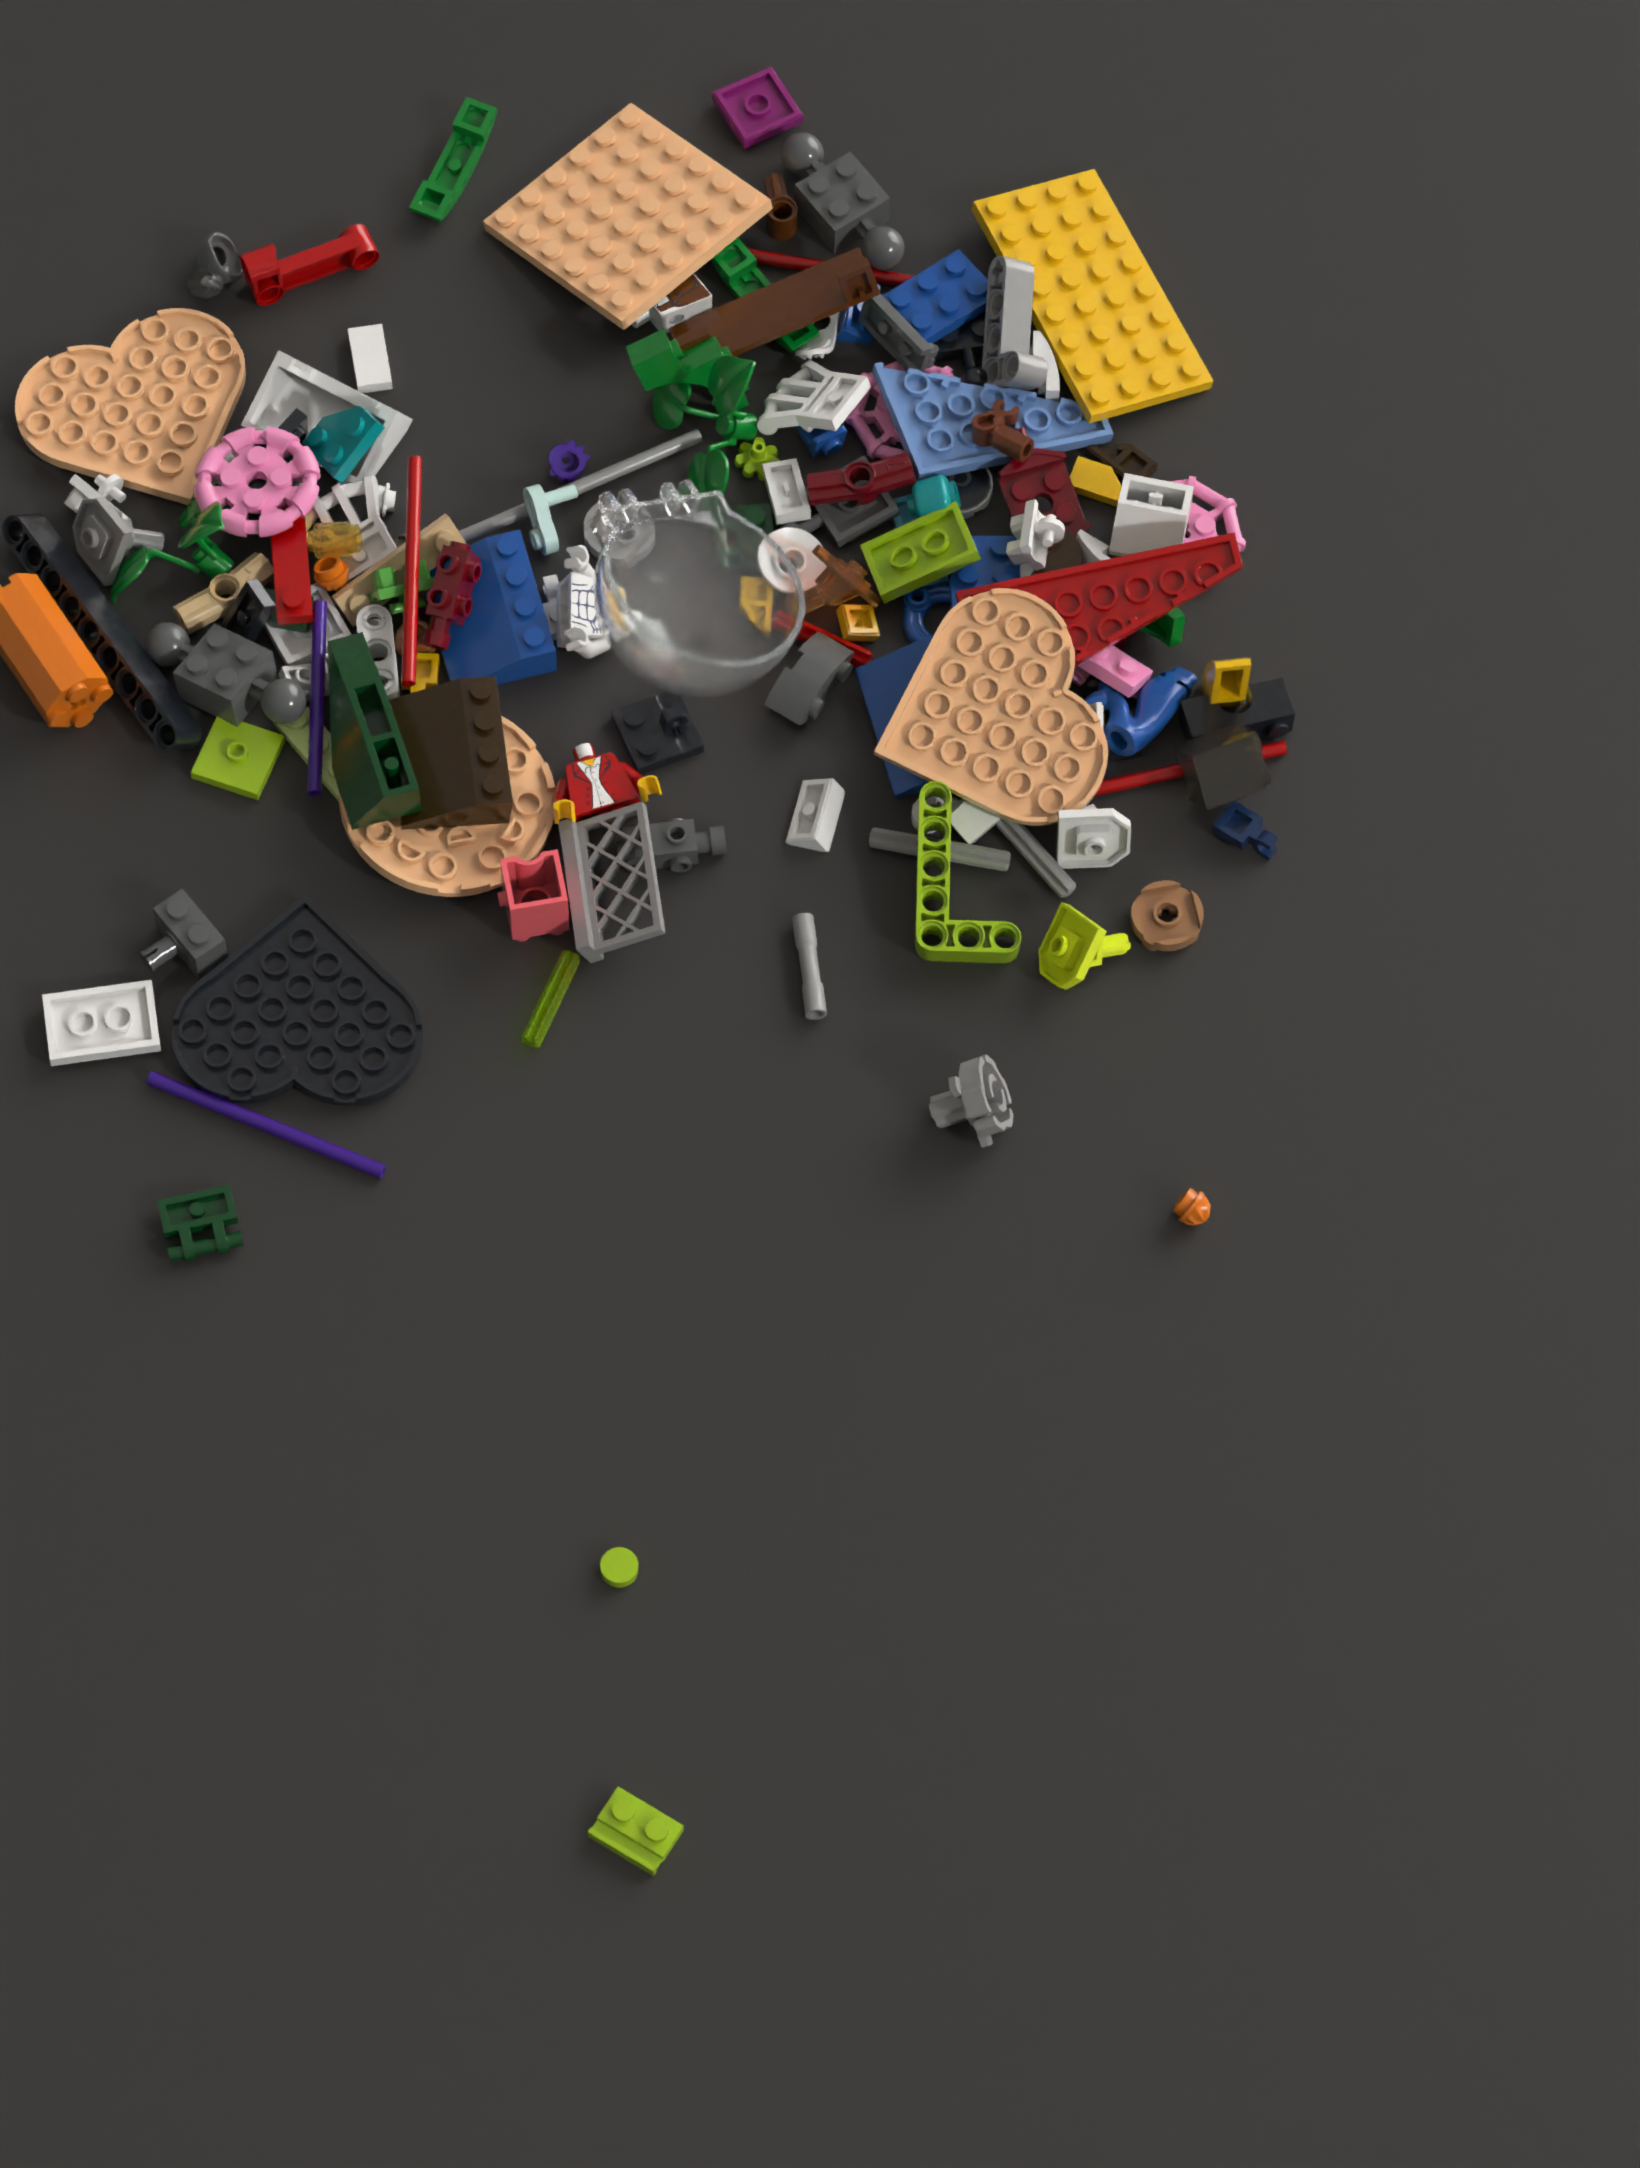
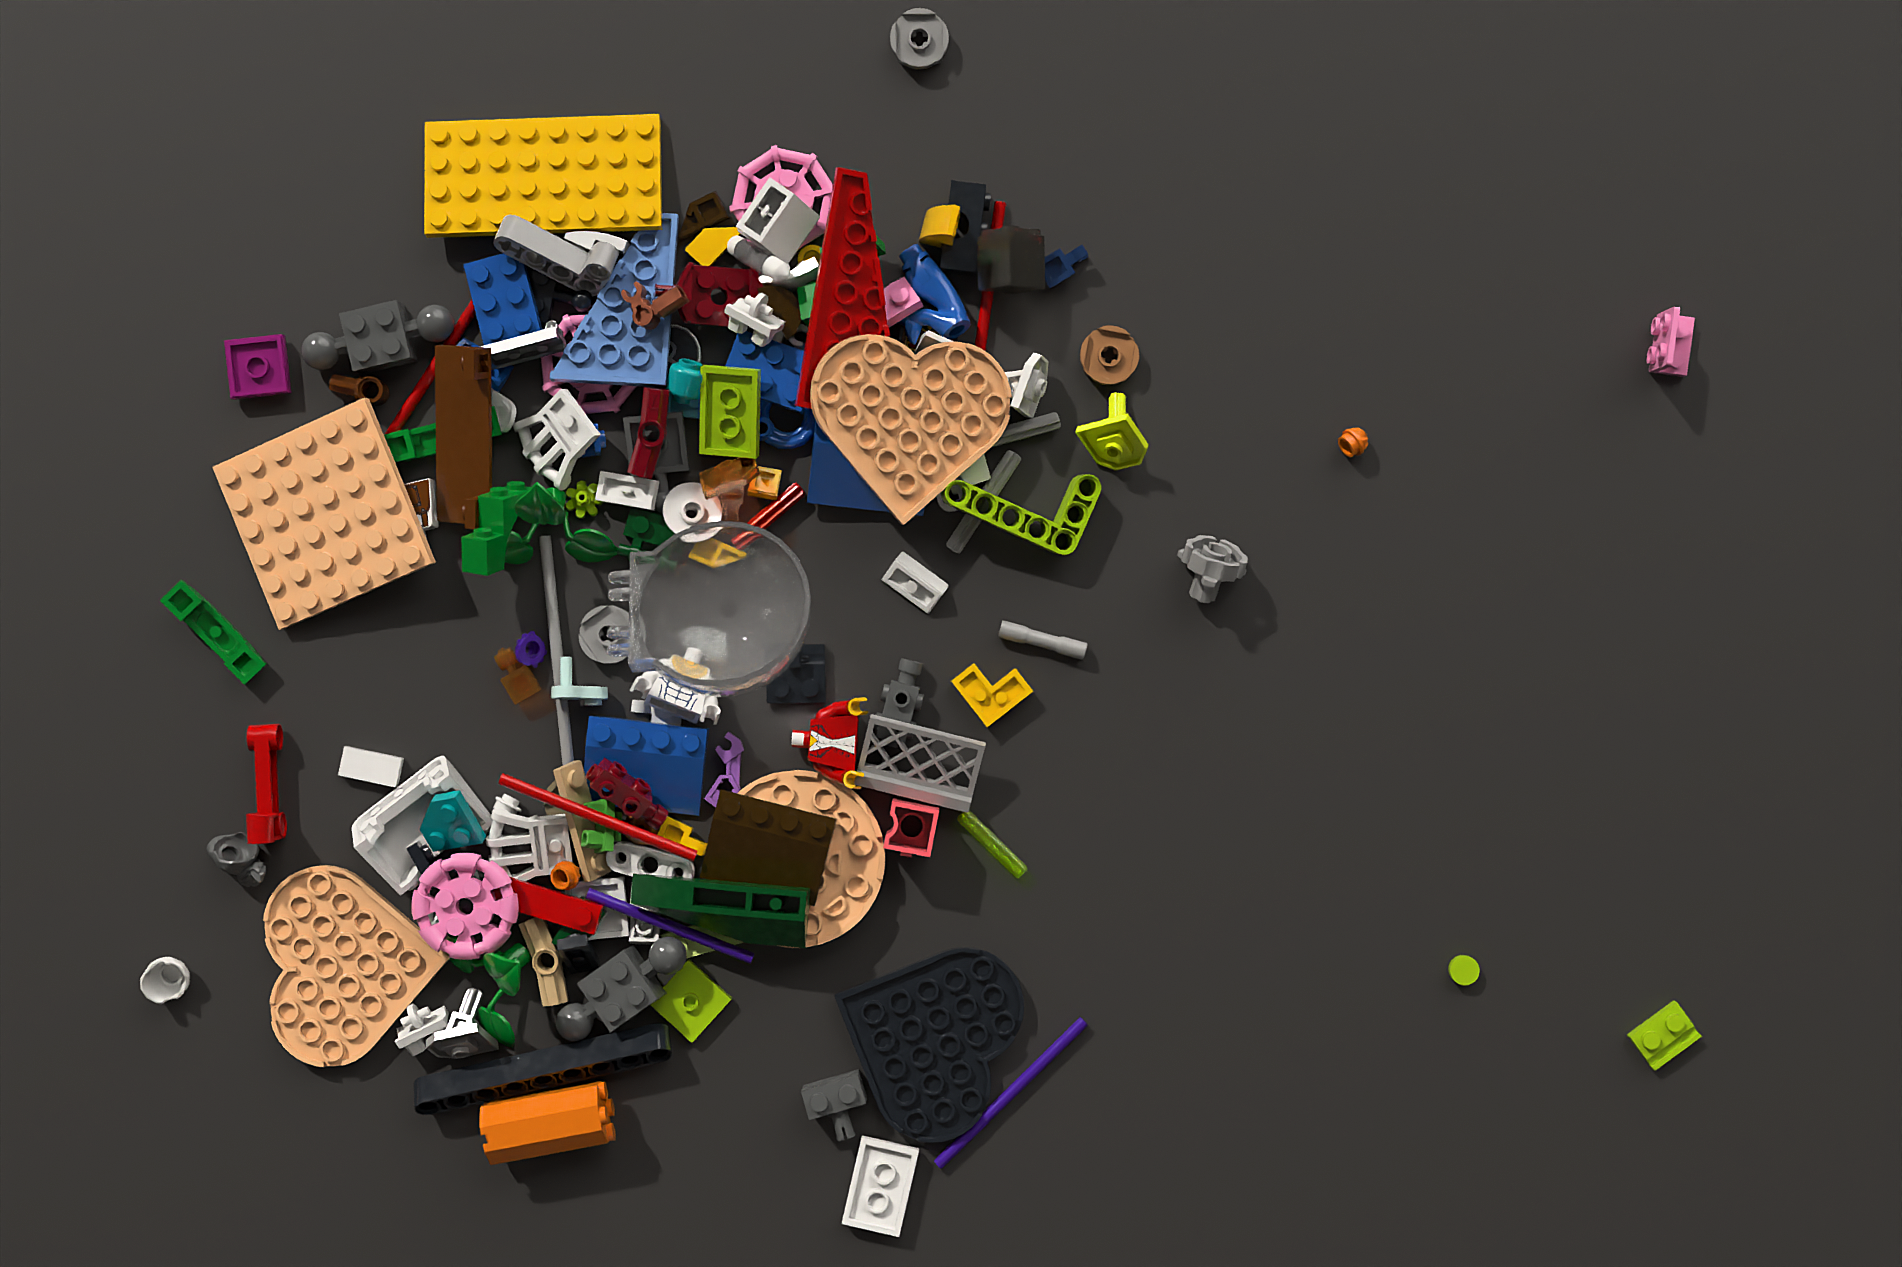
camera: 60 degrees left, 25 degrees up
(53, 241) = (165, 980): none -> white hair
(198, 1213) = (1066, 1169): dark green plate -> none
(335, 539) = (539, 863): clear yellow brick -> none
(527, 463) = (520, 682): none -> clear orange plate
(531, 701) = (732, 759): none -> medium lavender piece
(716, 934) = (988, 700): none -> yellow plate
(802, 691) = (795, 528): dark grey brick -> none
(1101, 521) = (758, 258): none -> piece
(1419, 618) = (907, 51): none -> light grey plate
(1475, 1508) = (1670, 343): none -> bright pink bracket

